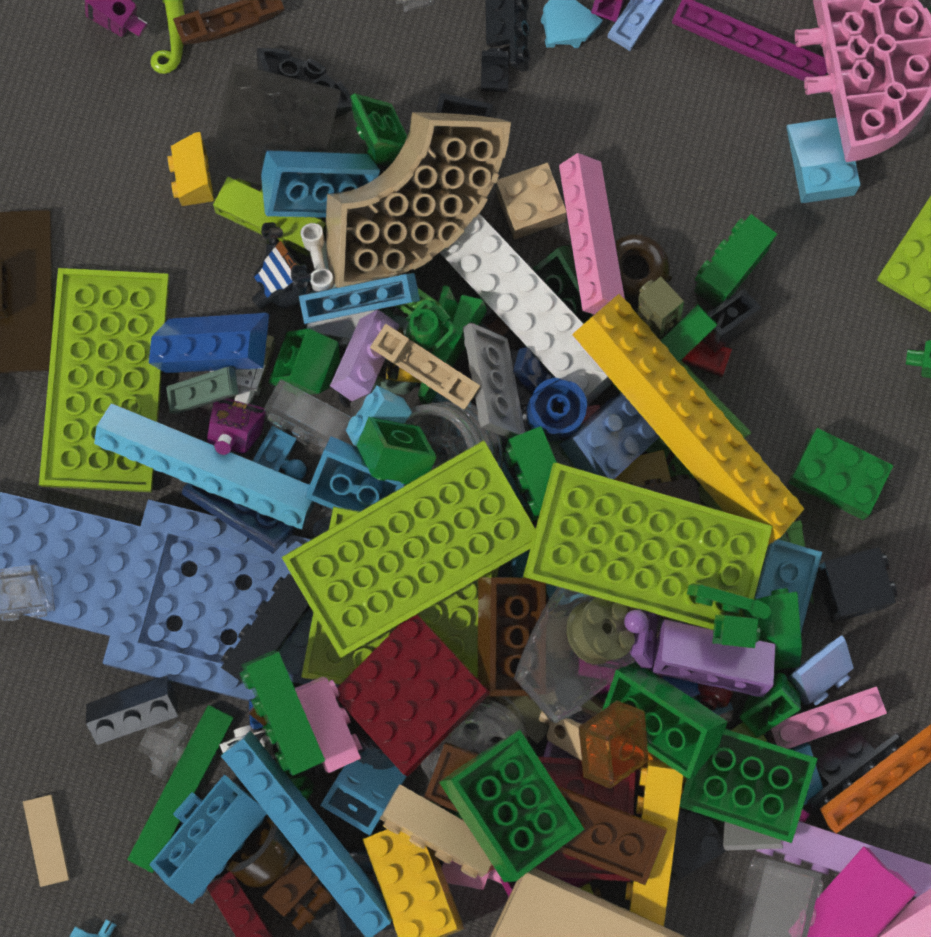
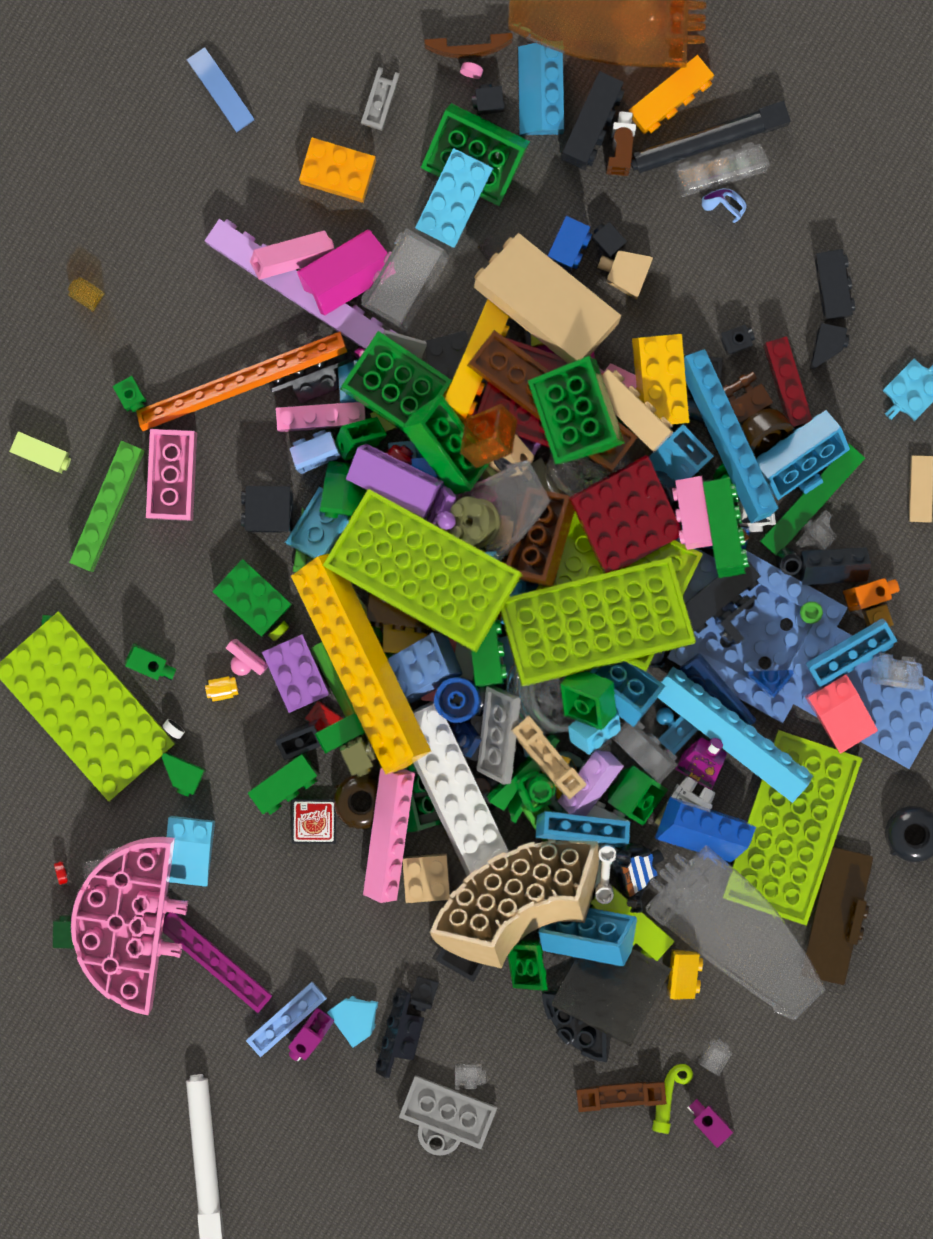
camera: 165 degrees left, 10 degrees up
(61, 661) = (874, 614): none -> pearl gold brick
(77, 529) = (842, 713): none -> coral slope
(78, 688) = (870, 594): none -> orange torso
(83, 603) = (851, 652): none -> dark azure brick
(129, 89) = (715, 1056): none -> clear brick
(140, 237) = (736, 931): none -> clear windscreen
(146, 642) = (811, 612): none -> bright green tile
(174, 543) = (770, 681): none -> blue slope
(190, 700) = (788, 561): none -> black brick
(202, 390) = (720, 795): sand green tile -> none
(243, 586) = (729, 632): none -> black bracket
(684, 232) = (313, 821): none -> tile
(731, 602) = (372, 516): green hinge -> none
(736, 631) = (374, 493): green brick -> none
(759, 397) = (296, 673): none -> medium lavender brick
(795, 443) = (278, 631): none -> lime tile
(825, 399) = (245, 659): none -> bright pink tile
(843, 356) = (221, 688): none -> yellow brick
(858, 244) = (183, 774): none -> green slope
(885, 293) = (173, 728): none -> white tile

